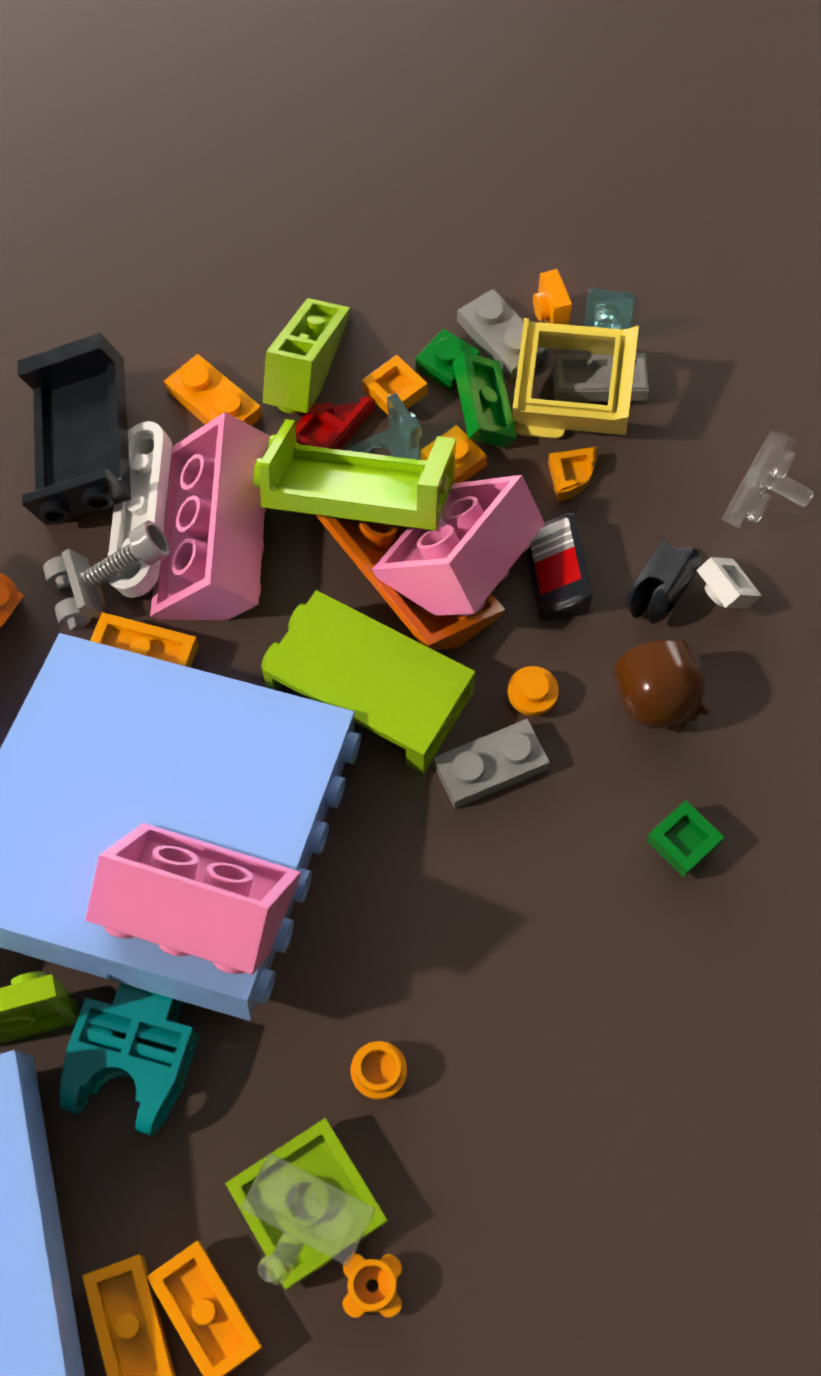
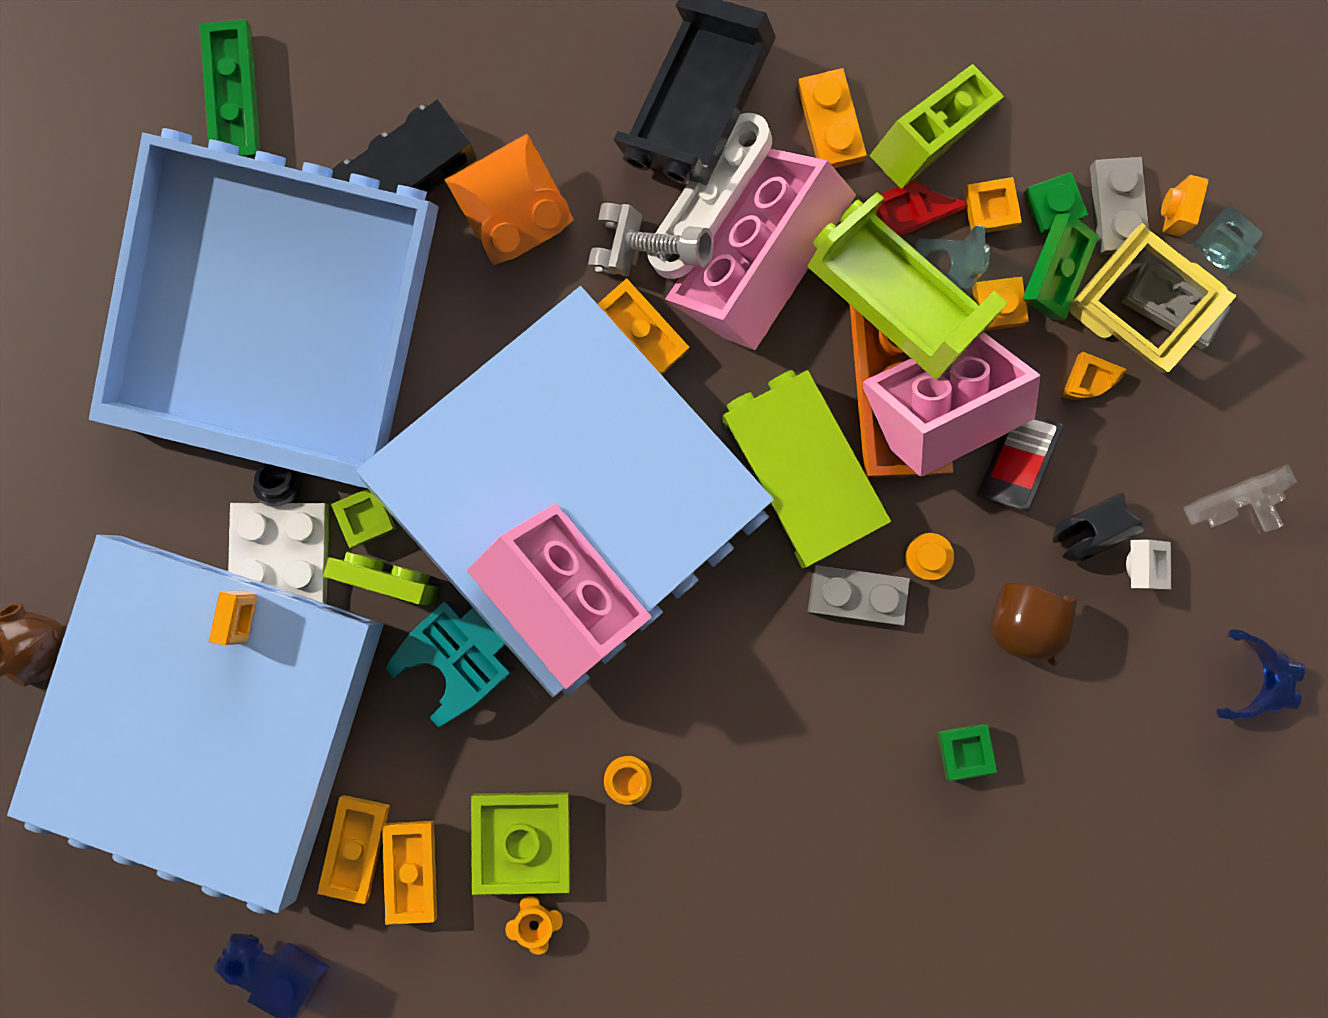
camera: 30 degrees right, 20 degrees up
(307, 1214) = (514, 856): clear plate -> none

